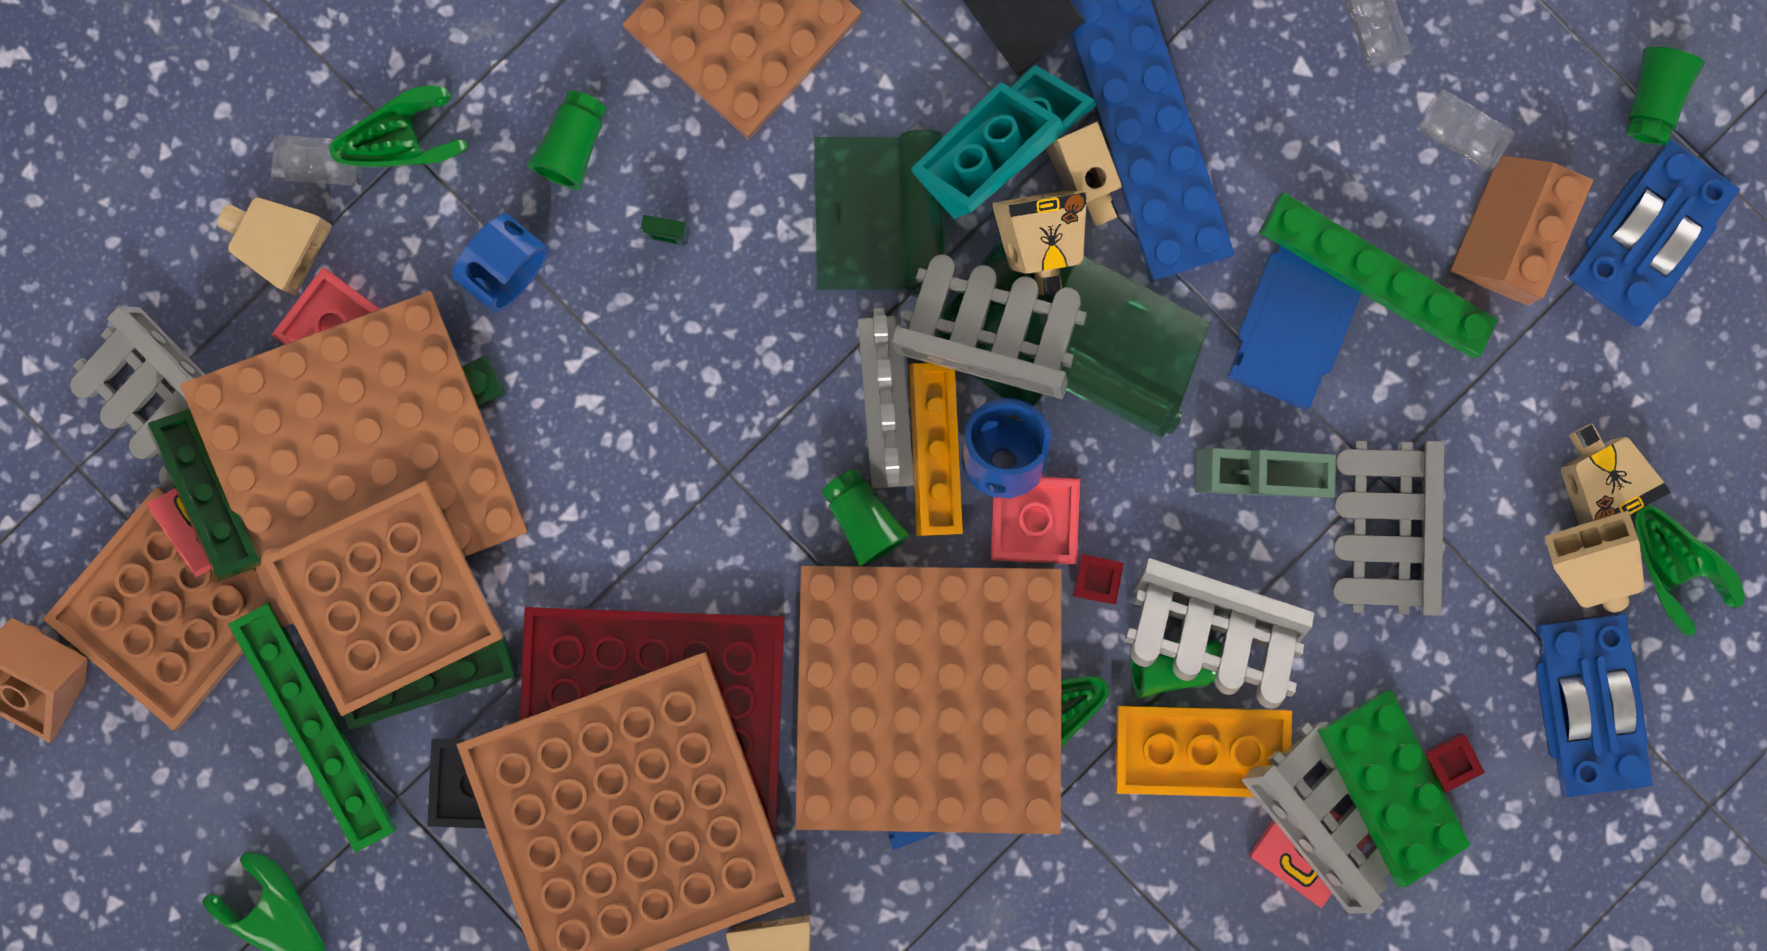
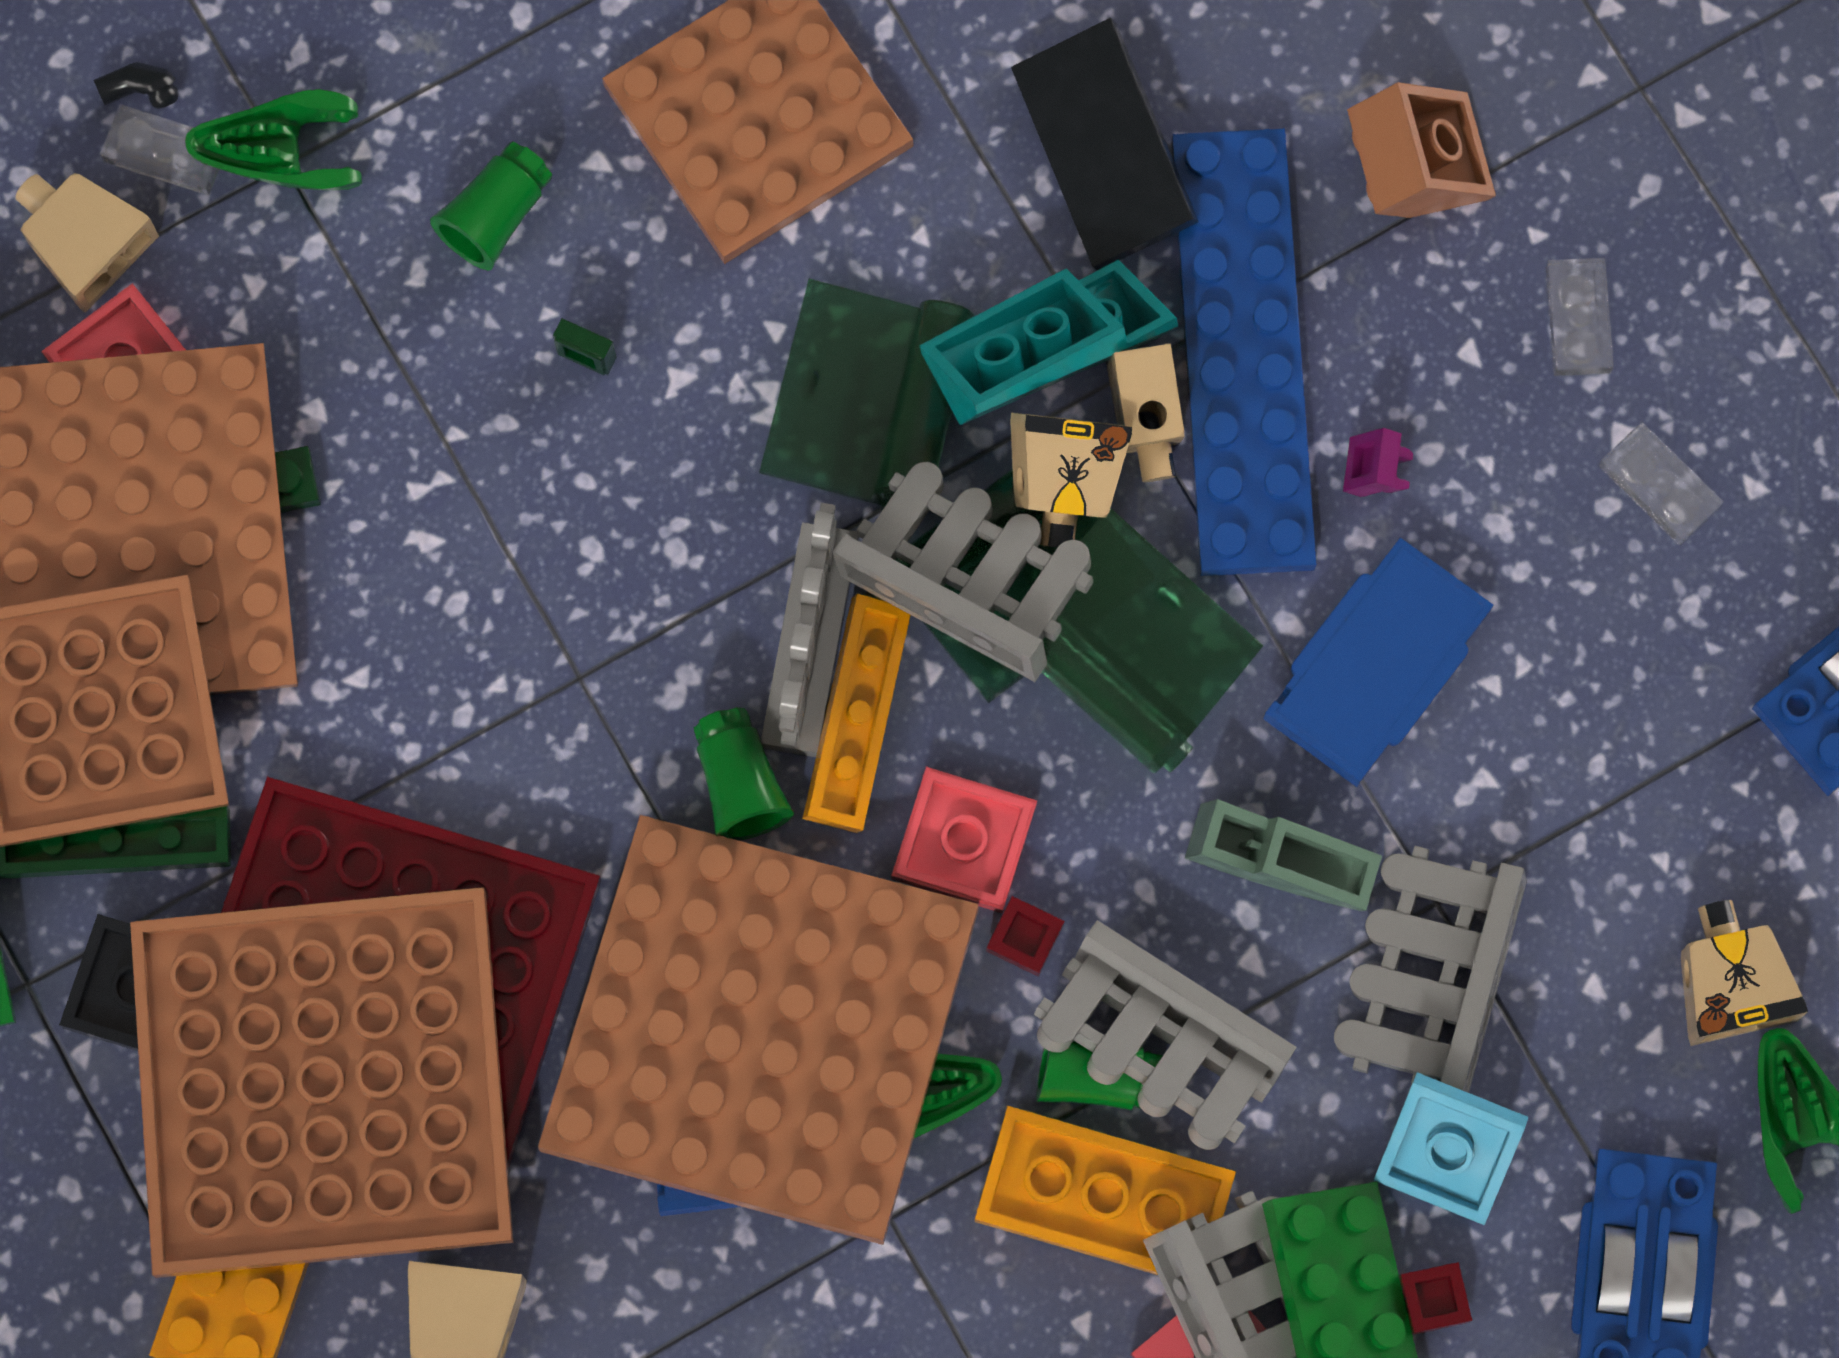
camera: 15 degrees right, 10 degrees down
(284, 112) = (138, 78): none -> black arm
(501, 259) = (361, 332): blue piece -> none
(992, 432) = (931, 710): blue piece -> none
(1258, 168) = (1374, 463): none -> magenta tile
(1378, 275) = (1495, 637): green plate -> none
(1441, 655) = (1451, 1148): none -> medium azure plate
(1521, 227) = (1699, 624): nougat slope -> none
(1599, 561) = (1689, 1078): tan torso -> none

